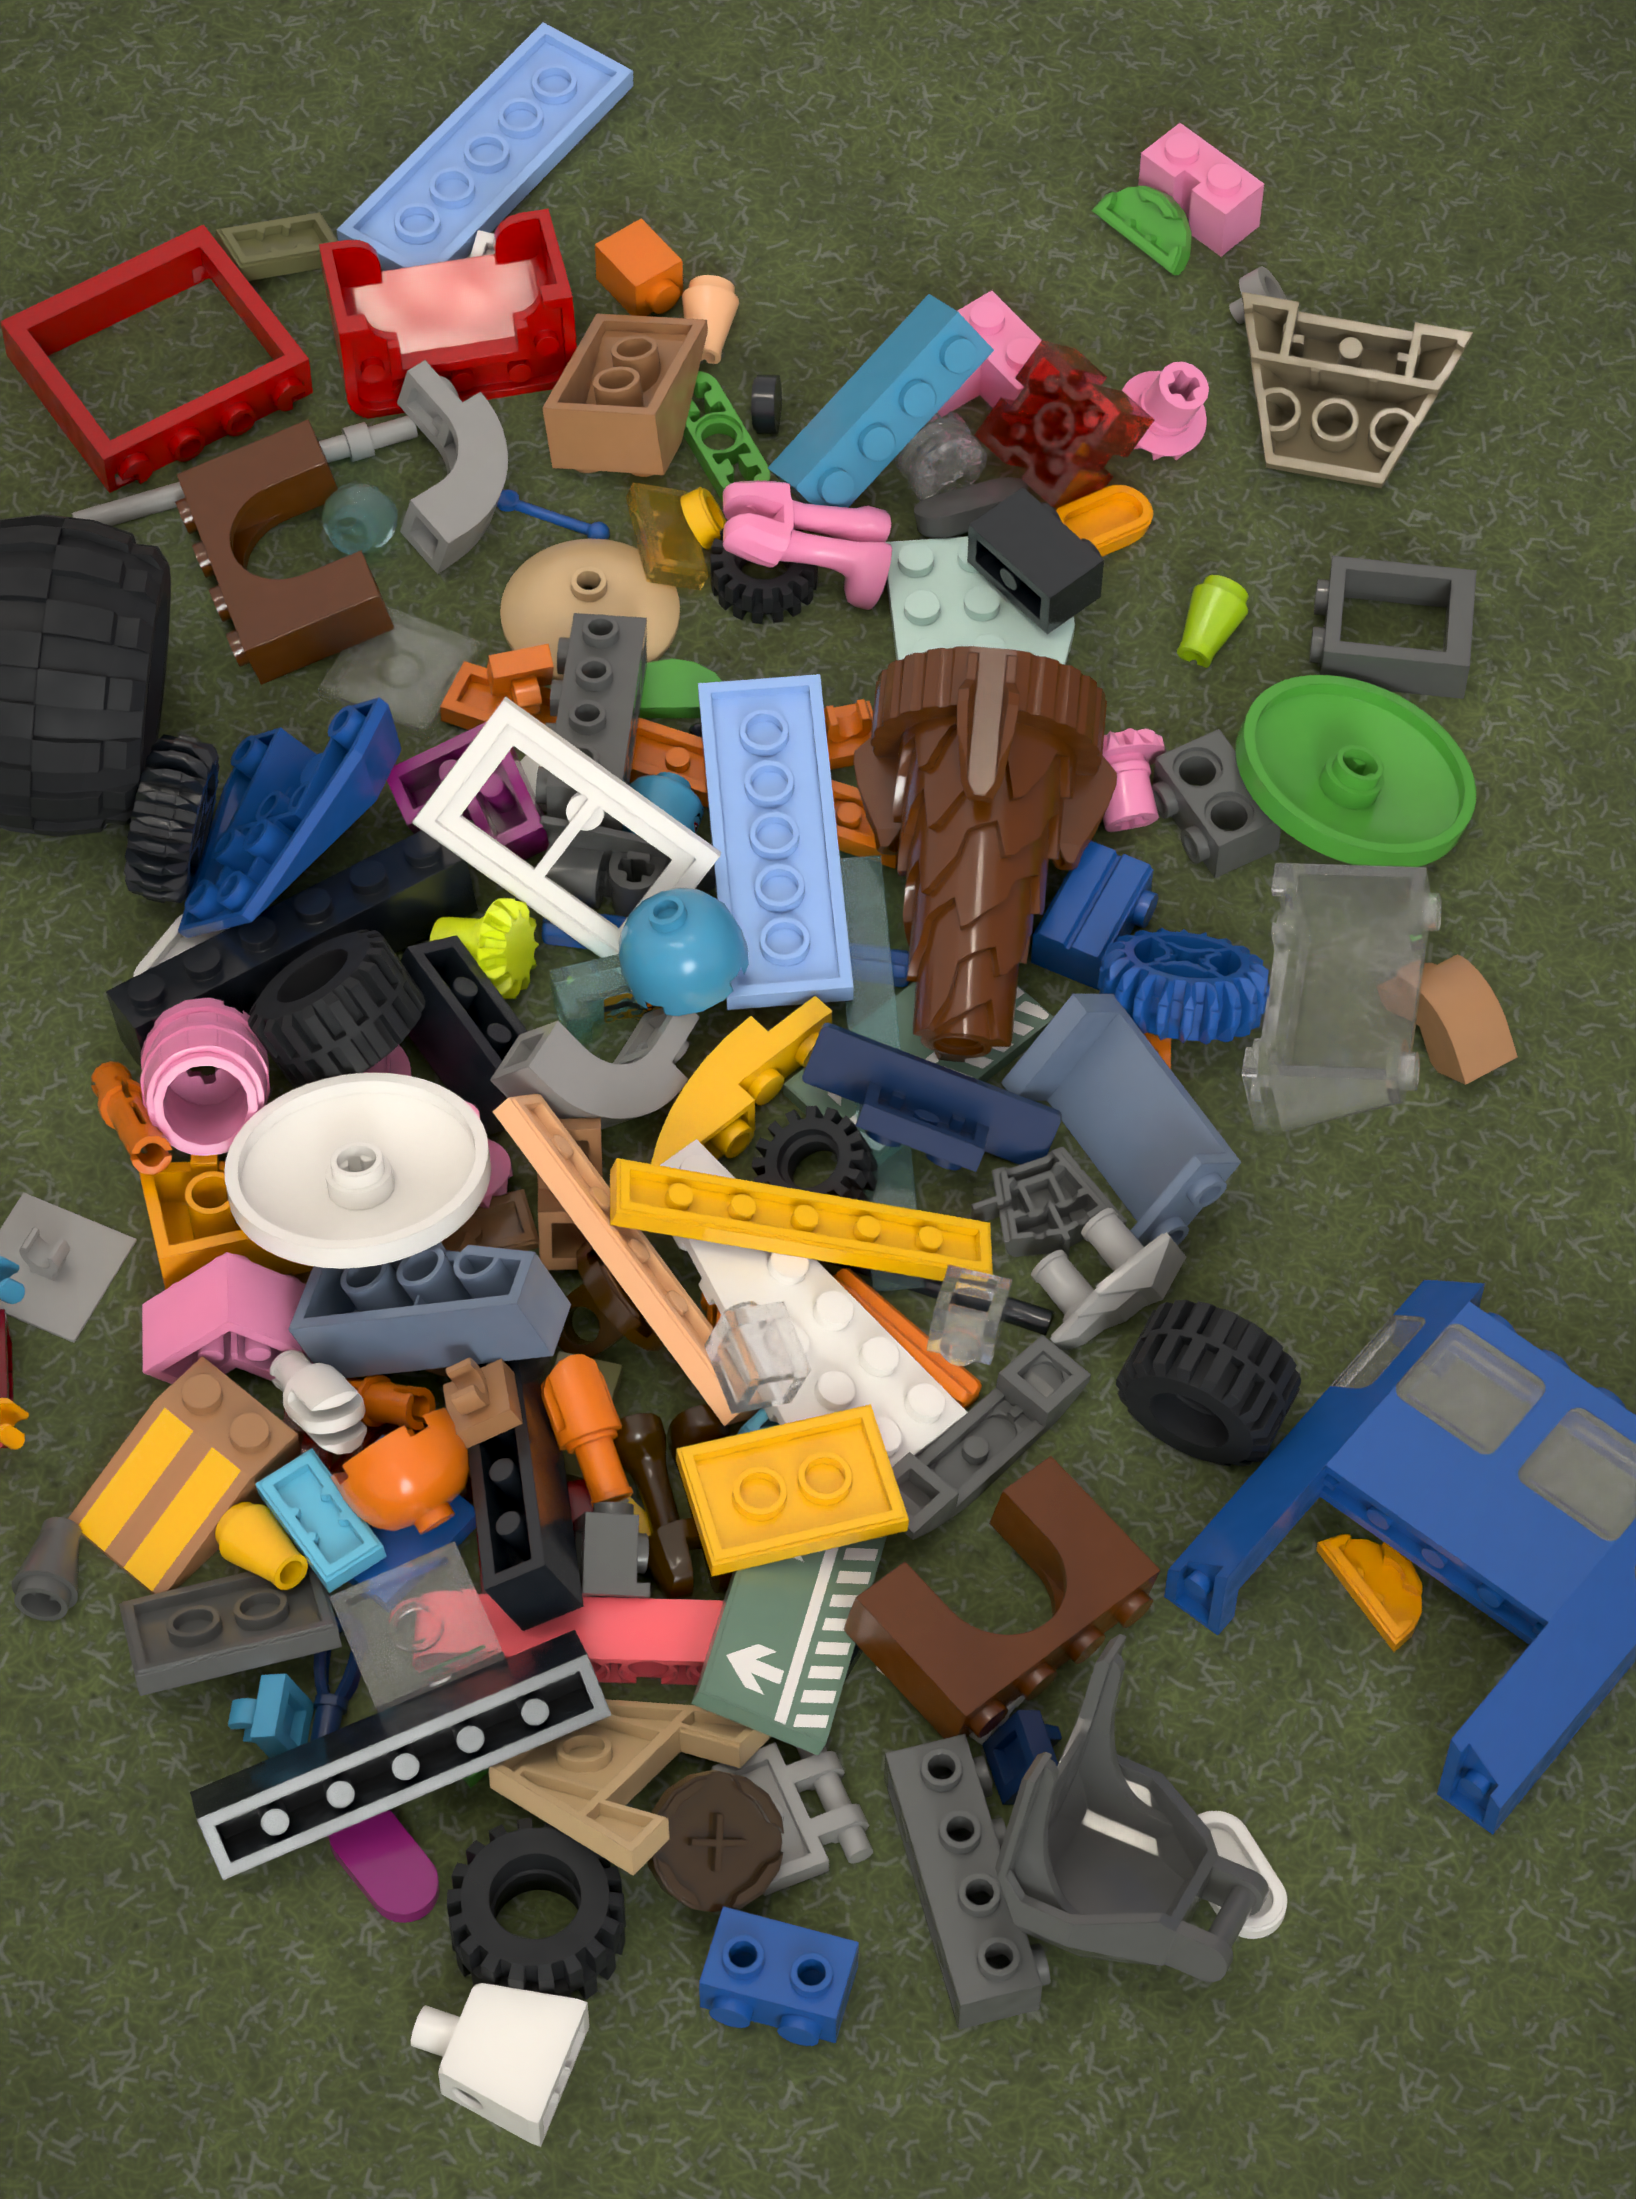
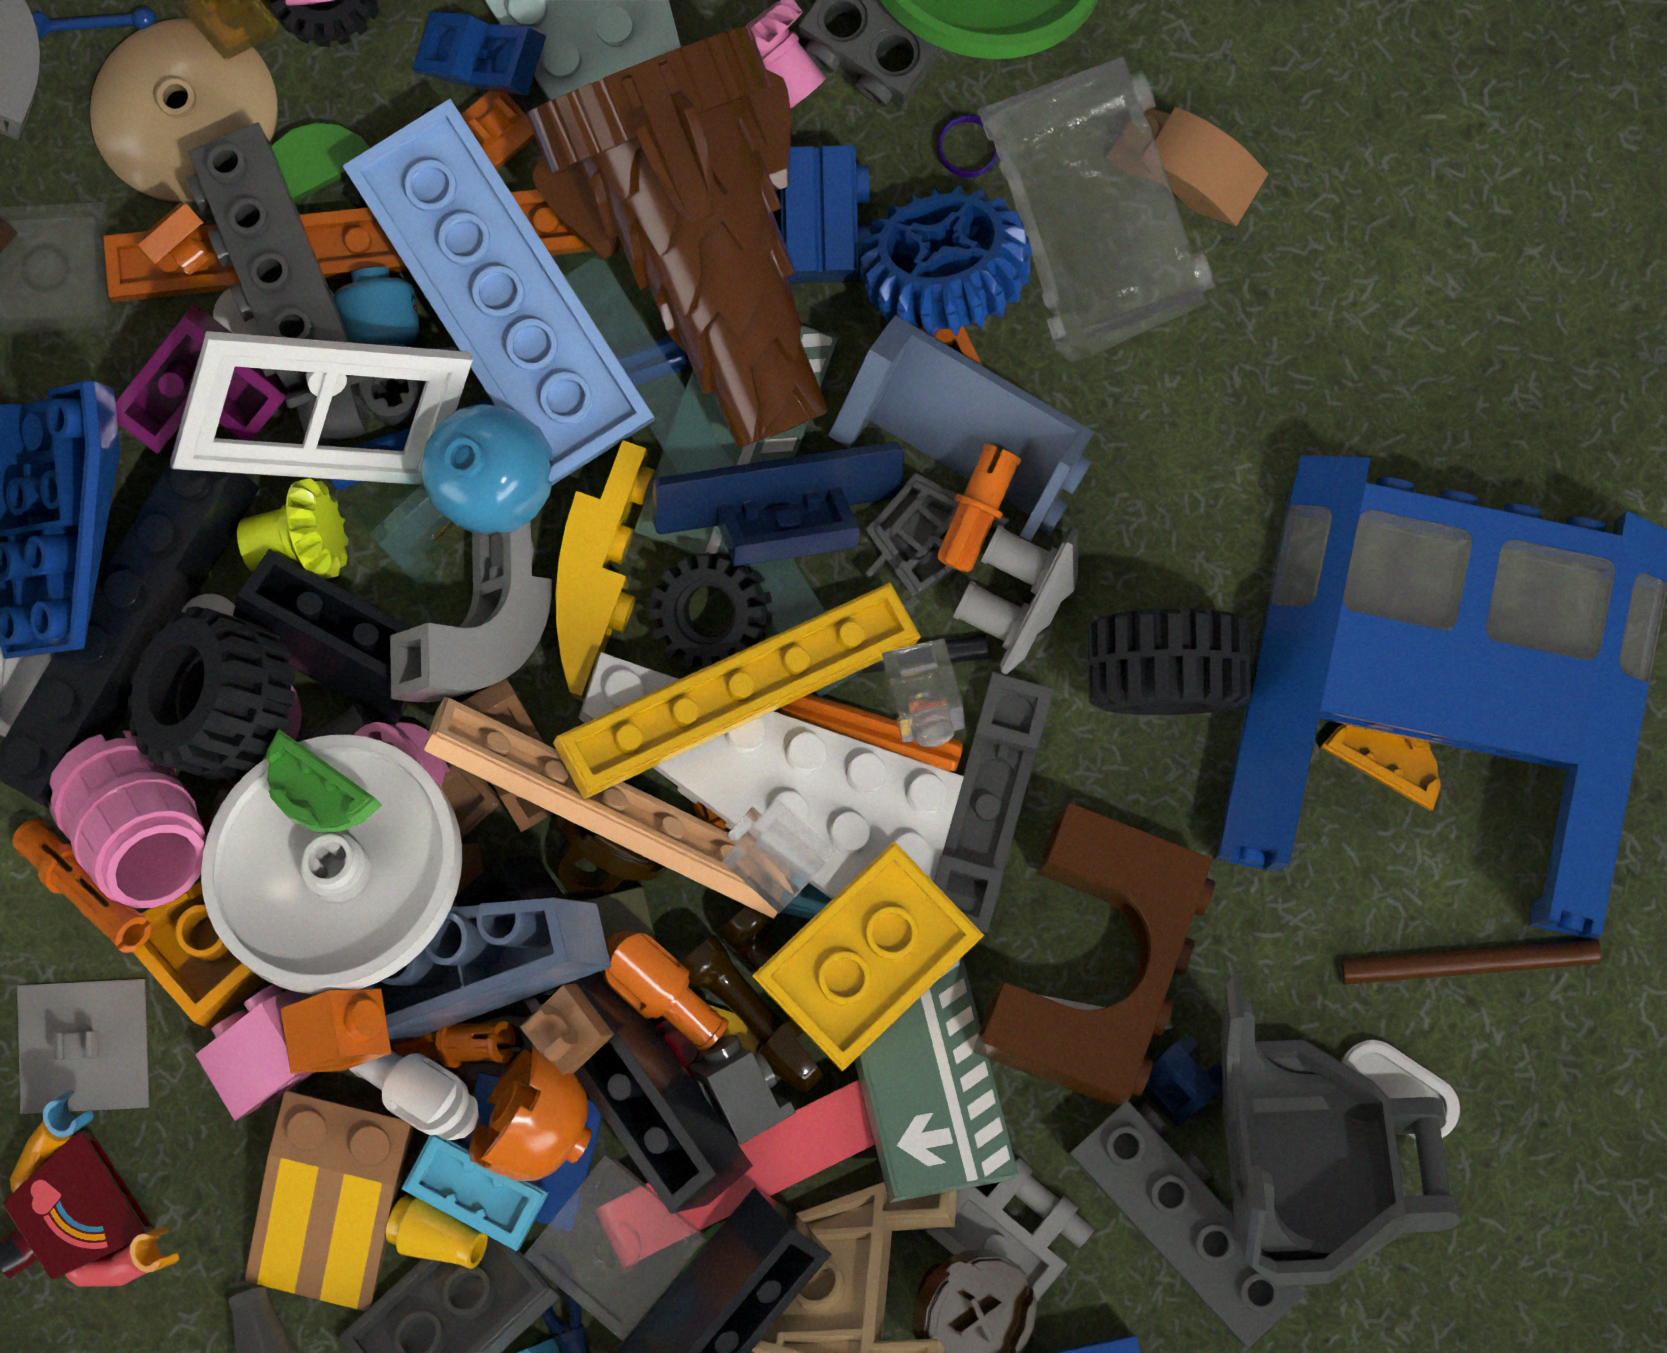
camera: 25 degrees left, 25 degrees up
(278, 1299) = (335, 1030): none -> orange brick
(379, 1105) = (314, 791): none -> bright green tile
(852, 664) = (479, 53): none -> blue slope
(1103, 1187) = (978, 508): none -> orange axle
(1254, 904) = (964, 174): none -> dark purple axle
(1364, 1796) = (1471, 961): none -> reddish brown bar

